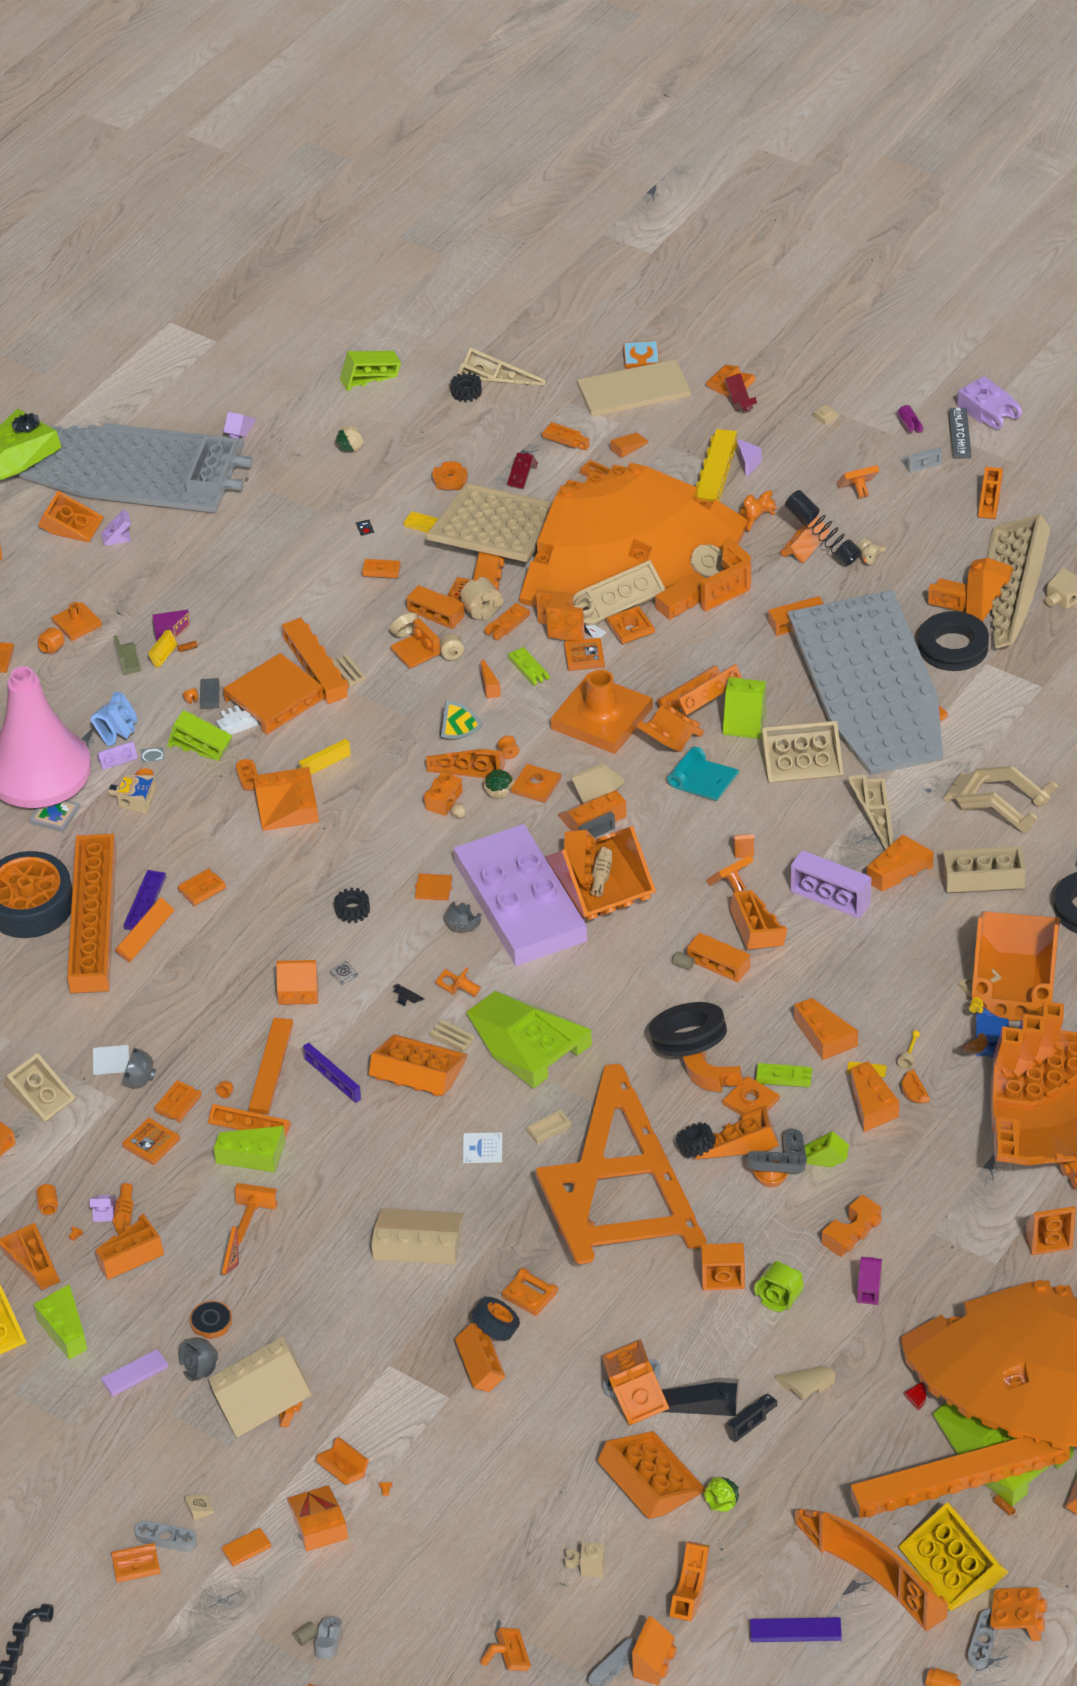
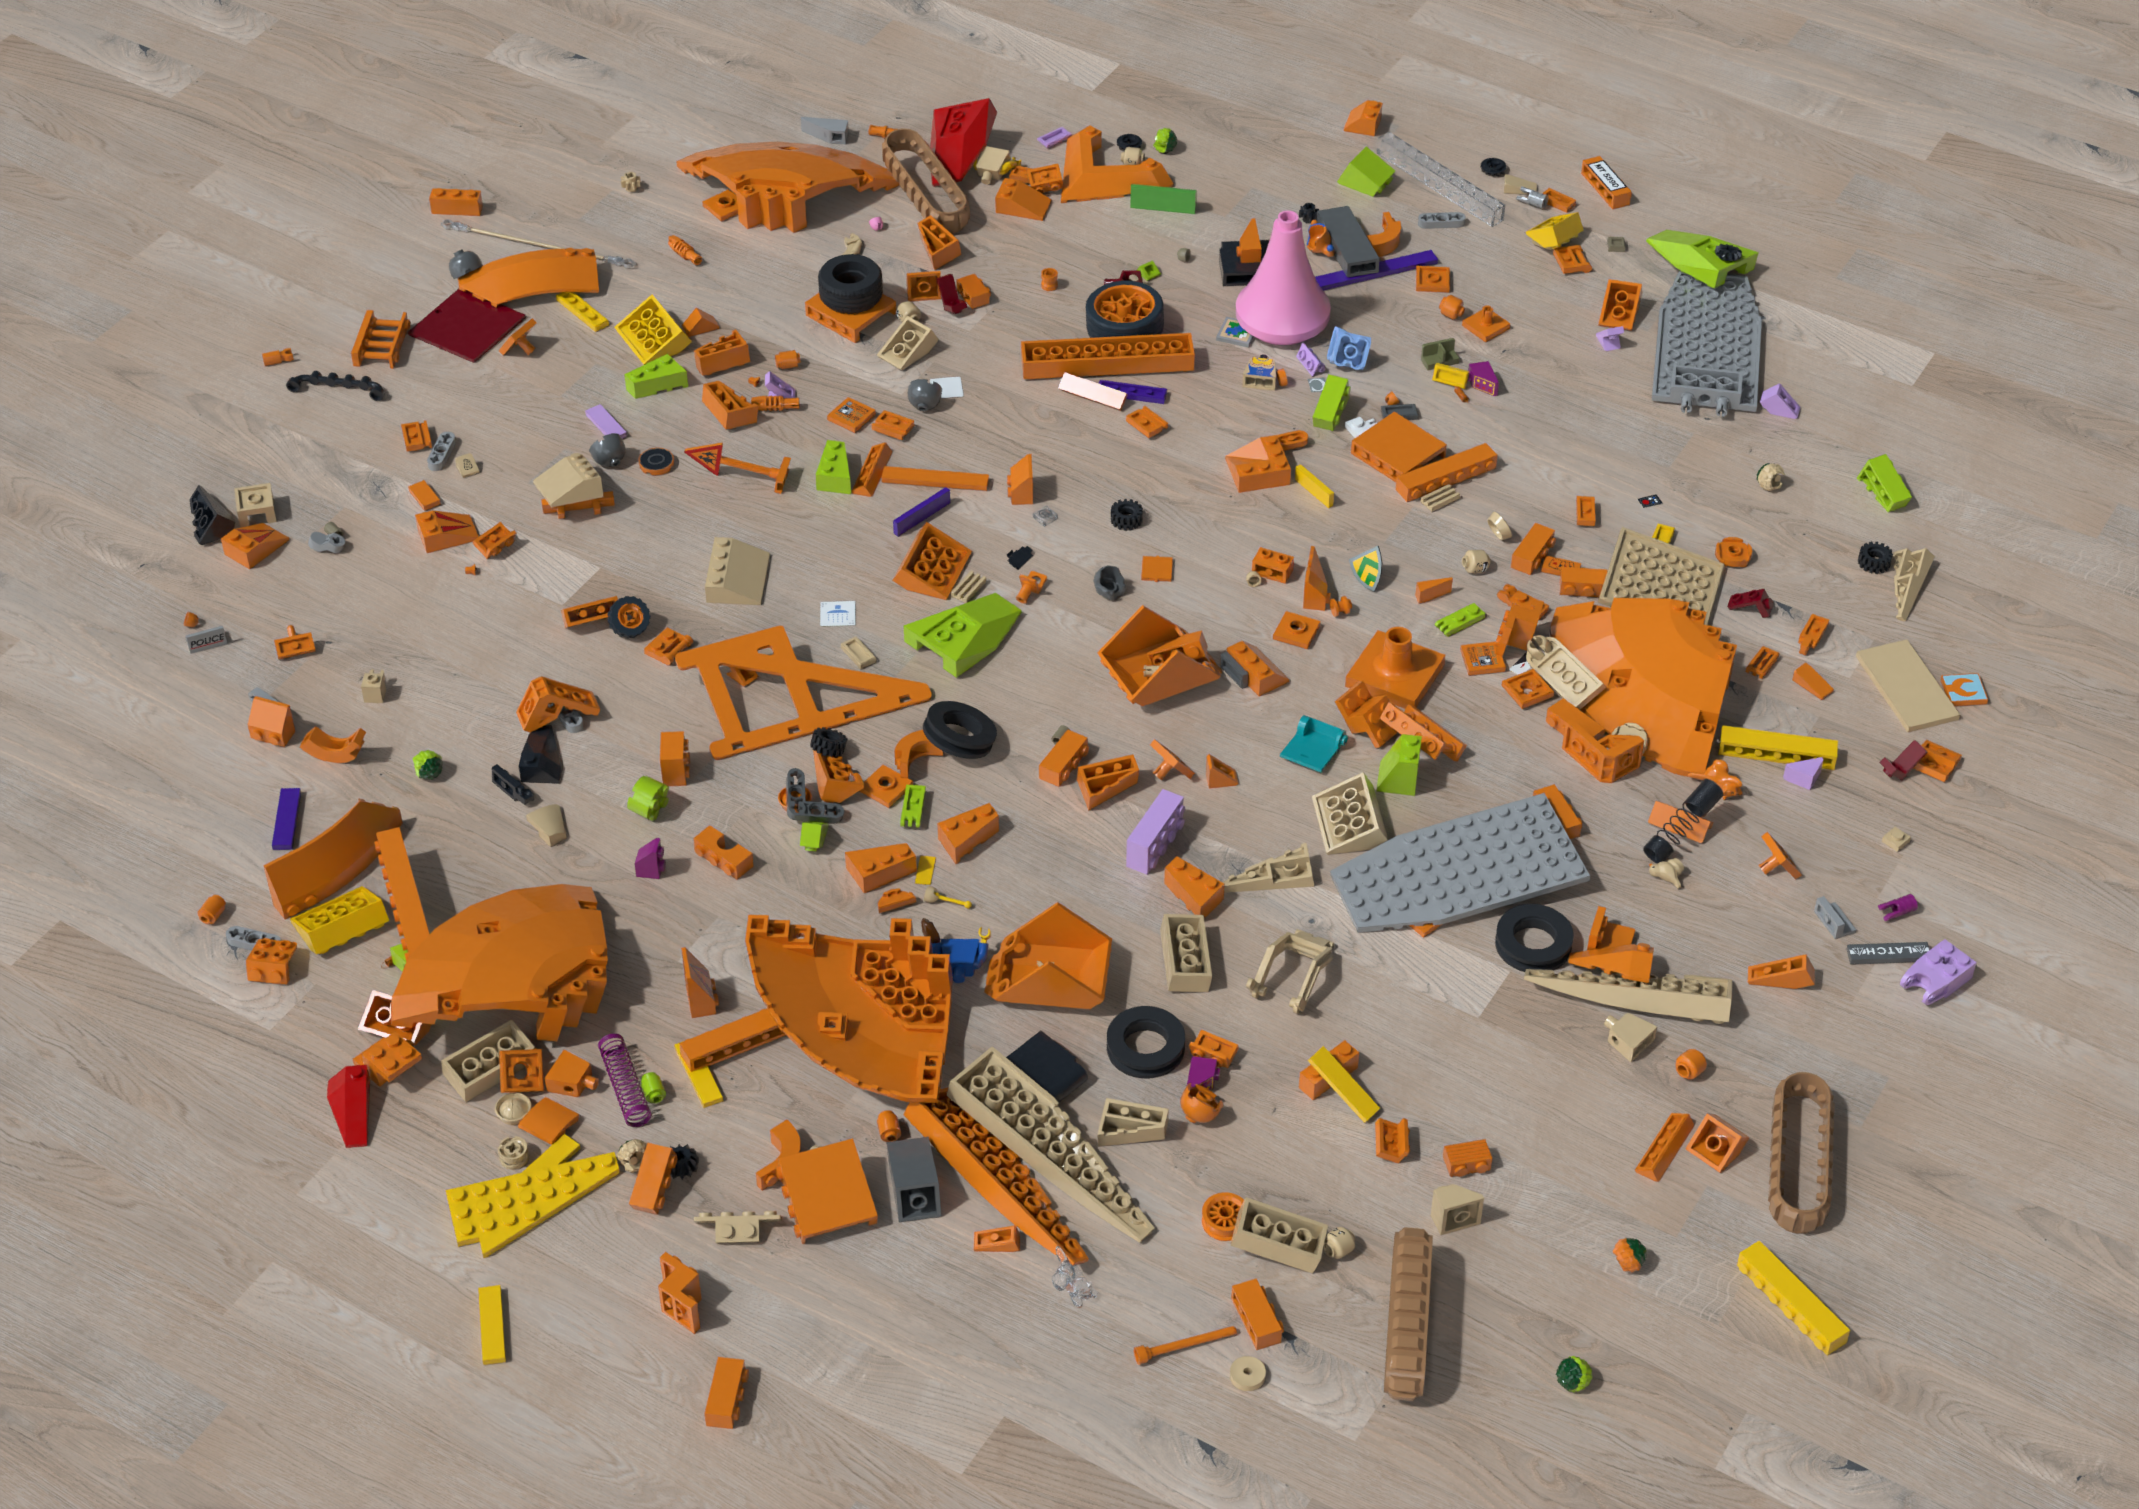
camera: 85 degrees right, 0 degrees up
(224, 1089) = (906, 451): orange hinge -> none
(418, 647) = (1475, 537): orange bracket -> none
(481, 598) = (1540, 573): tan brick -> none
(498, 783) = (1288, 598): dark green piece -> none
(520, 895) = (1175, 596): lavender plate -> none
(596, 782) = (1279, 660): tan slope -> none
(649, 1473) = (459, 722): orange slope -> none

